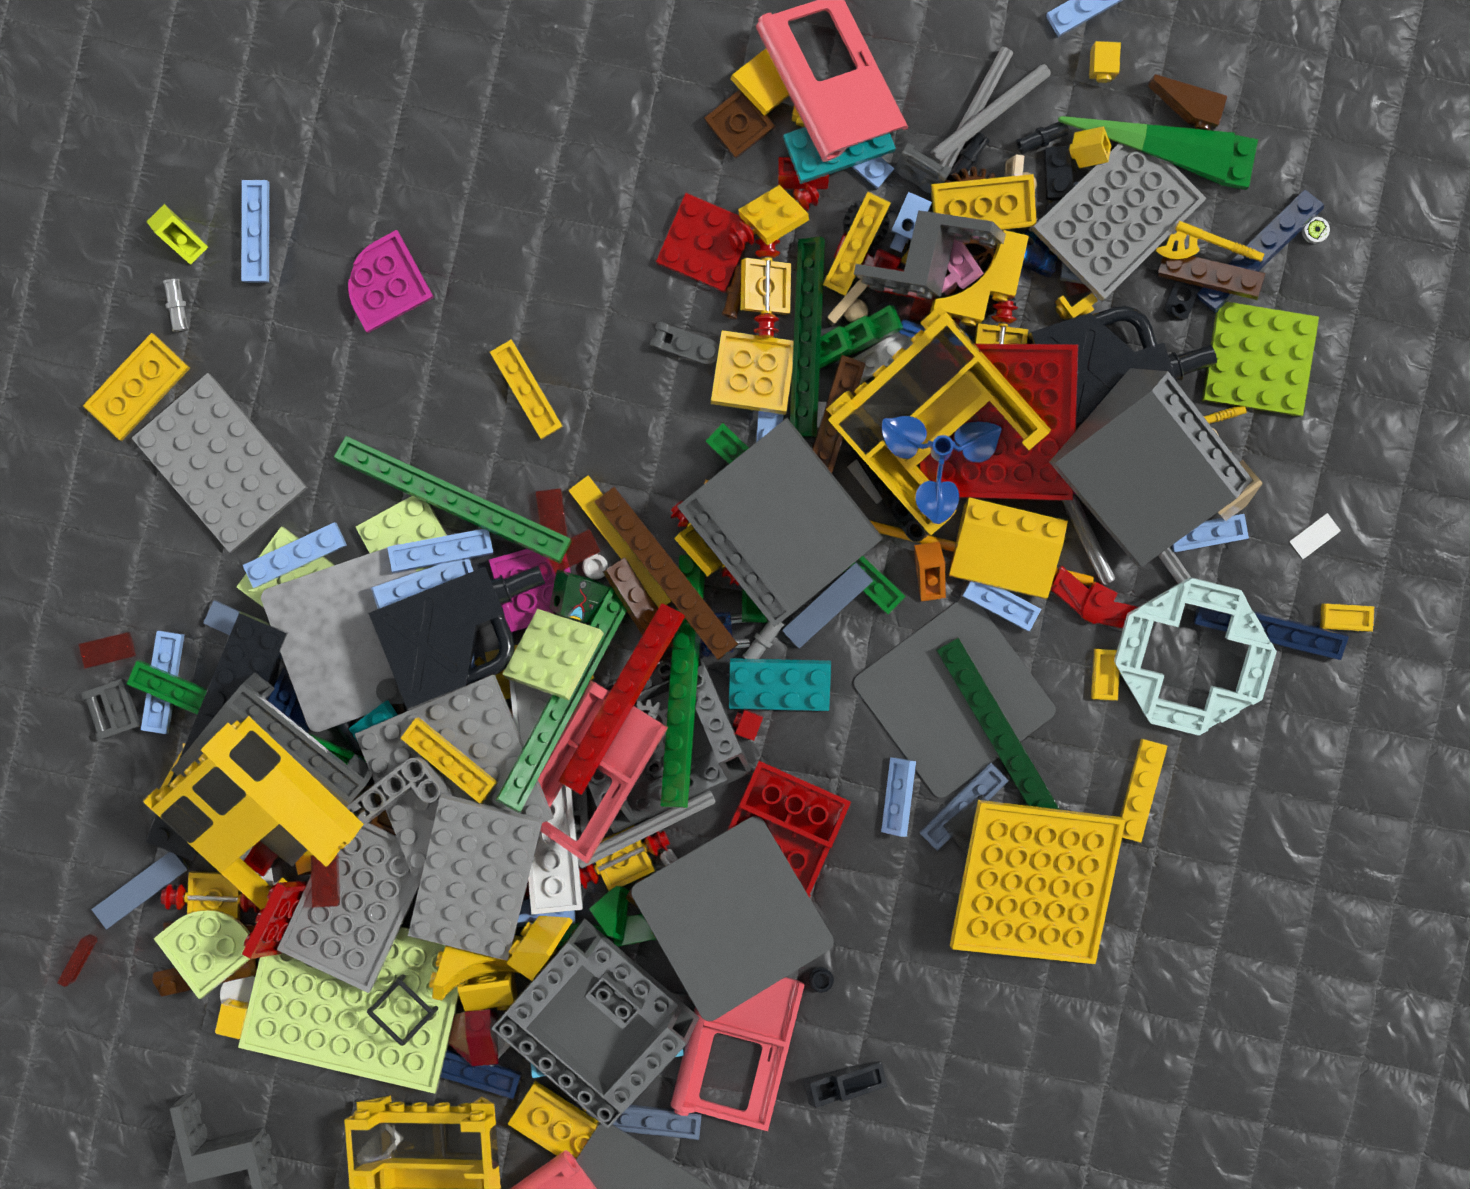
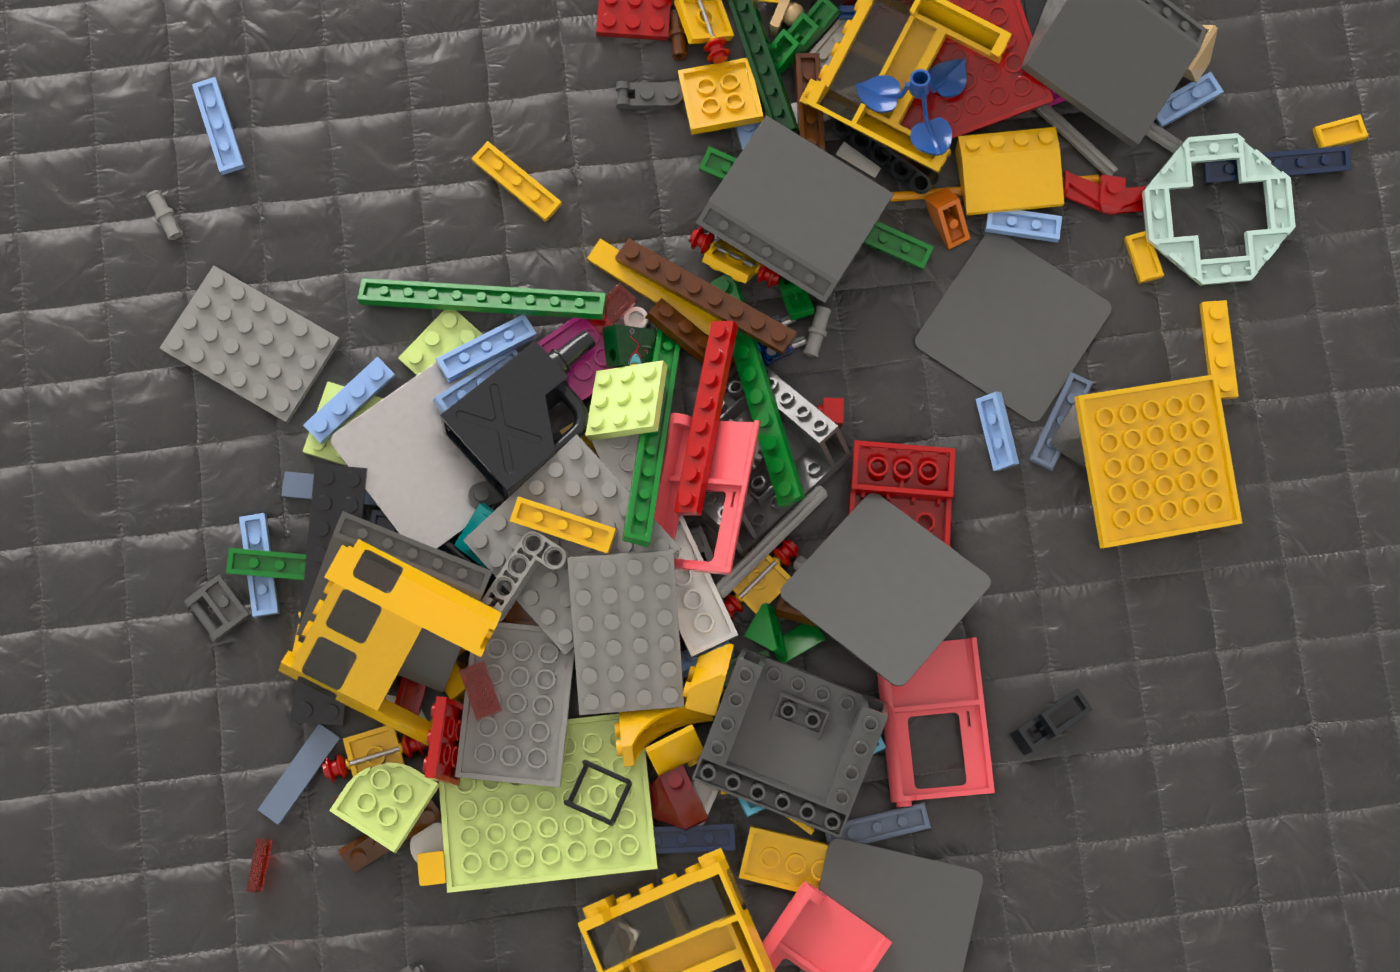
camera: 20 degrees left, 10 degrees down
(107, 650) = (196, 554): clear red tile -> none
(136, 386) = (149, 301): yellow tile -> none
(177, 234) = (146, 151): neon yellow slope -> none
(386, 282) = (355, 130): dark pink plate -> none
(552, 510) = (575, 277): clear red plate -> none
(779, 684) = (847, 365): teal plate -> none
(821, 979) = (990, 630): black plate -> none
(827, 605) = (864, 278): sand blue tile -> none
(995, 725) = (1057, 333): dark green plate -> none
(1315, 536) = (1281, 73): white sticker -> none

